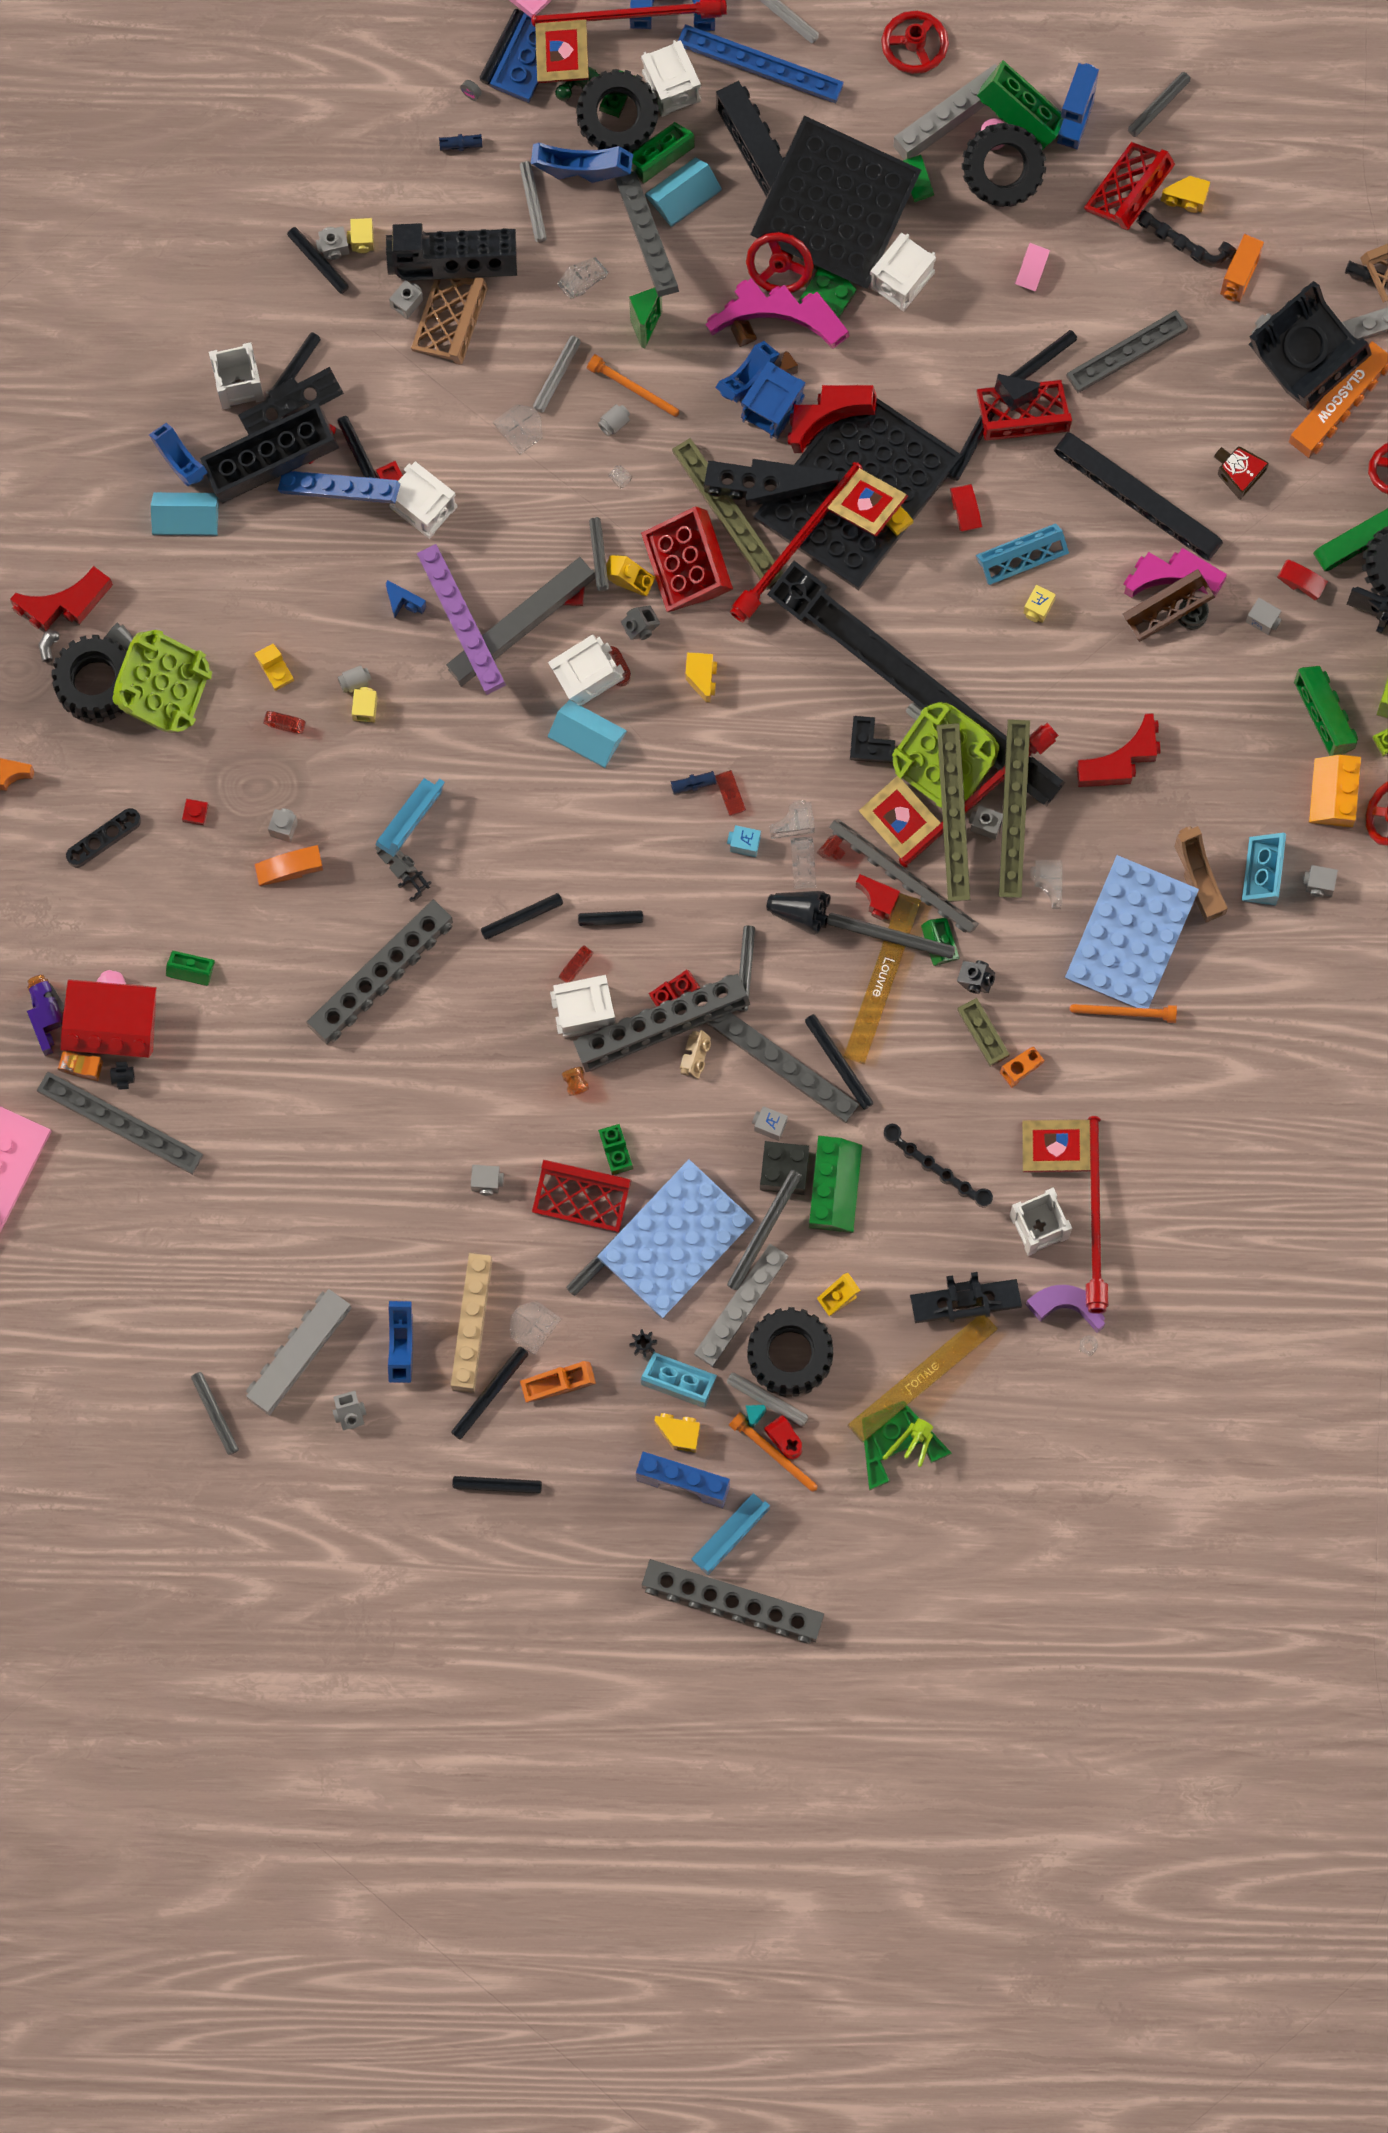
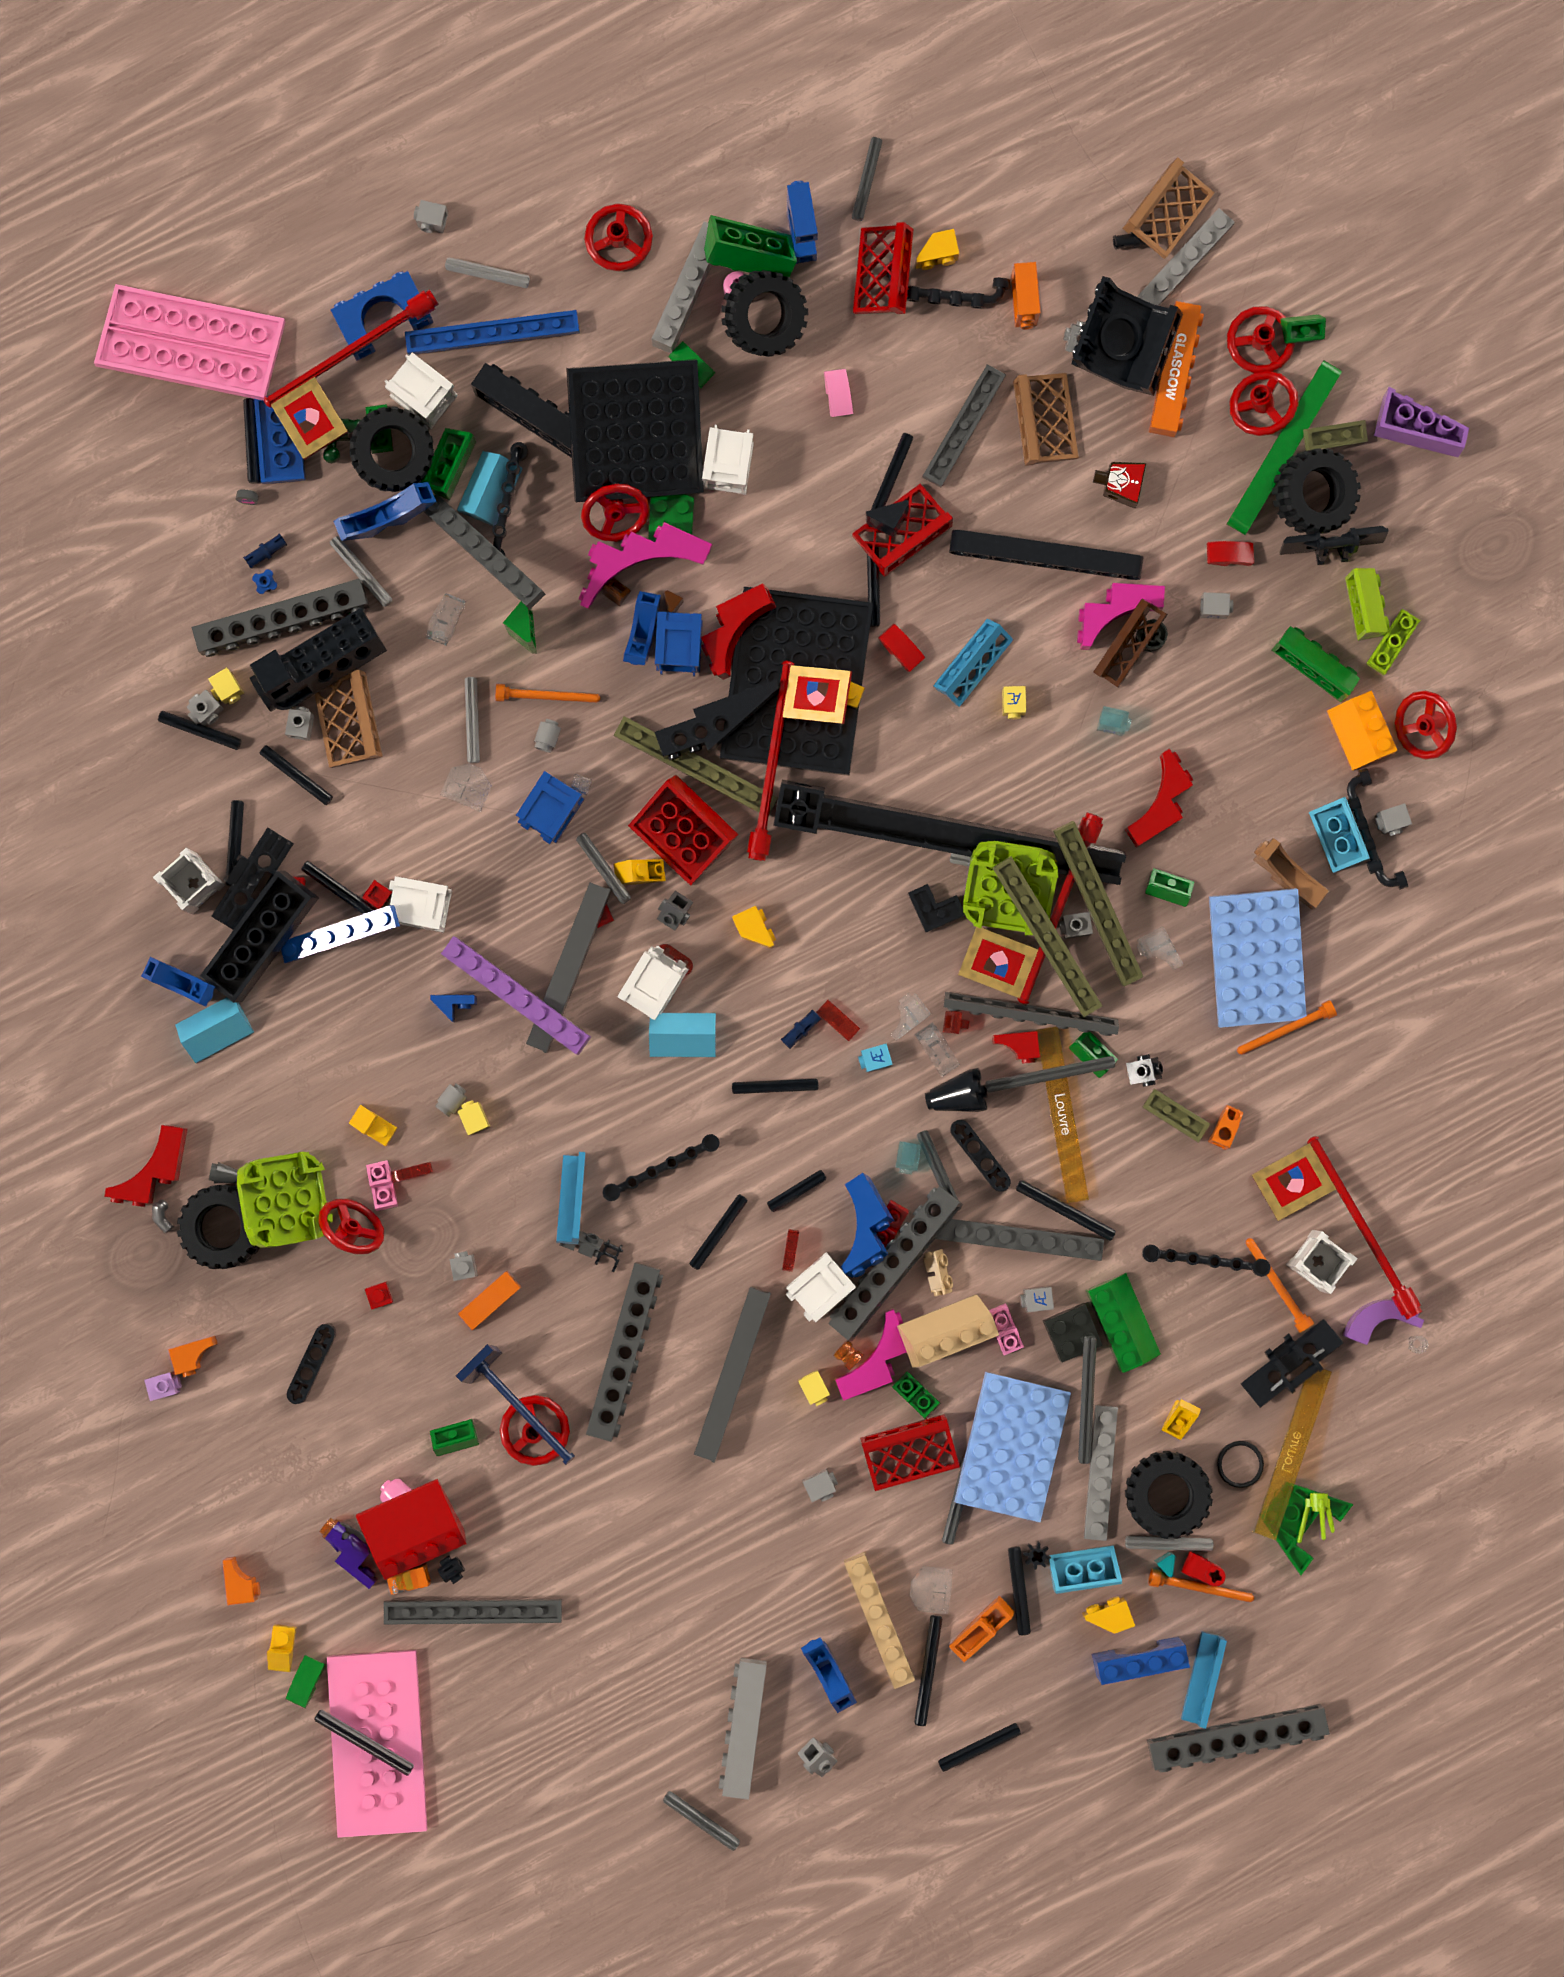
camera: 30 degrees left, 10 degrees up
(203, 739) = (349, 1228): none -> red piece
(249, 913) = (480, 1365): none -> dark blue tile
(252, 721) = (382, 1185): none -> bright pink slope
(259, 990) = (528, 1437): none -> red piece
(378, 340) = (296, 775): none -> black axle
(434, 194) = (205, 632): none -> dark grey brick
(449, 171) = (261, 587): none -> blue plate
(464, 1042) = (732, 1374): none -> dark grey tile
(529, 1093) = (814, 1388): none -> light yellow brick
(557, 833) = (612, 1191): none -> black bar
(581, 478) = (549, 808): none -> blue container
(590, 1106) = (874, 1370): none -> dark pink arch
(610, 1367) = (1019, 1591): none -> black axle
(643, 819) = (775, 1086): none -> black axle
(662, 971) = (871, 1218): none -> blue arch
(674, 1105) = (947, 1331): none -> tan slope
(725, 174) = (518, 453): none -> black bar
(725, 940) = (907, 1157): none -> clear light blue brick
(726, 1135) = (1008, 1335): none -> bright pink slope
(792, 974) = (977, 1157): none -> black beam
(870, 1387) = (1261, 1464): none -> black tyre
(995, 1270) = (1302, 1320): none -> orange piece
(1088, 836) = (1169, 887): none -> green slope
(1118, 667) = (1113, 721): none -> clear light blue brick
(1186, 374) = (1027, 417): none -> medium nougat fence
(1286, 891) = (1375, 865): none -> black bar

